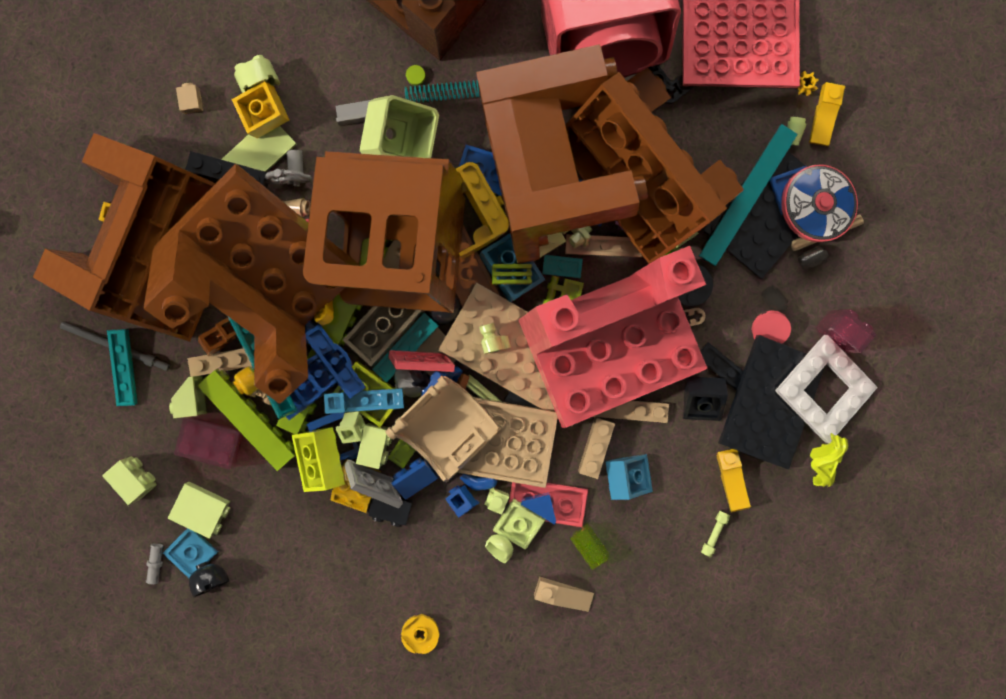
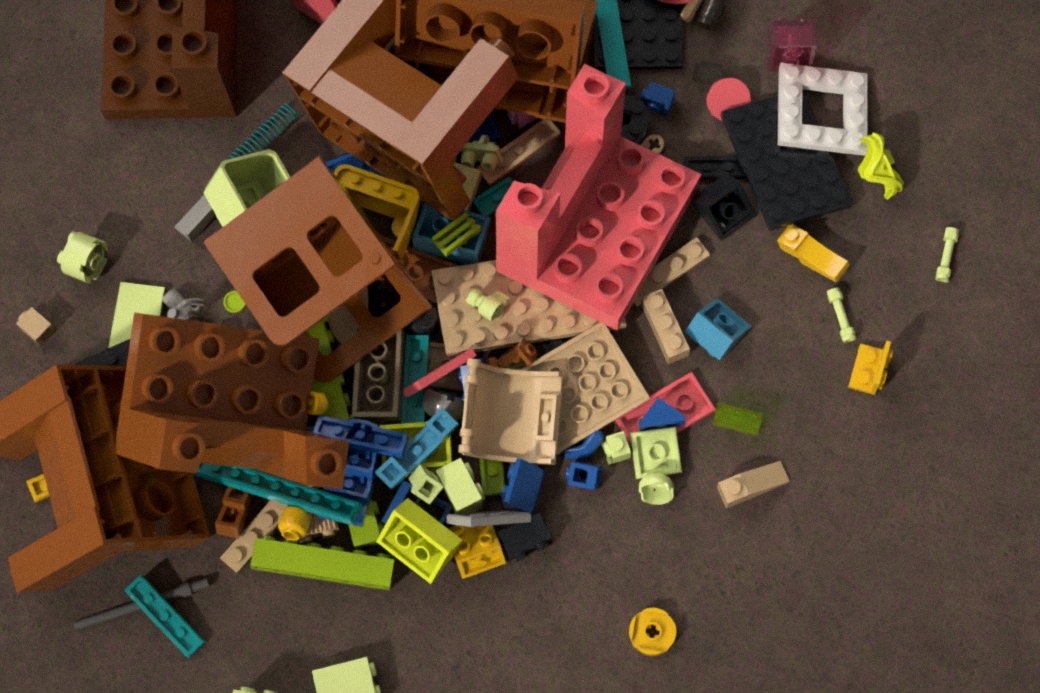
camera: 35 degrees left, 15 degrees down
(188, 399) = (254, 592): yellowish green slope -> none
(209, 442) = (303, 616): clear pink brick -> none
(260, 109) = (110, 279): yellow brick -> none
(415, 75) = (225, 144): lime tile -> none
(485, 386) = (519, 351): none -> dark orange bracket
(703, 586) = (869, 368): none -> yellow bracket
(726, 288) = (658, 98): none -> blue brick
(831, 542) = (950, 237): none -> yellowish green bar

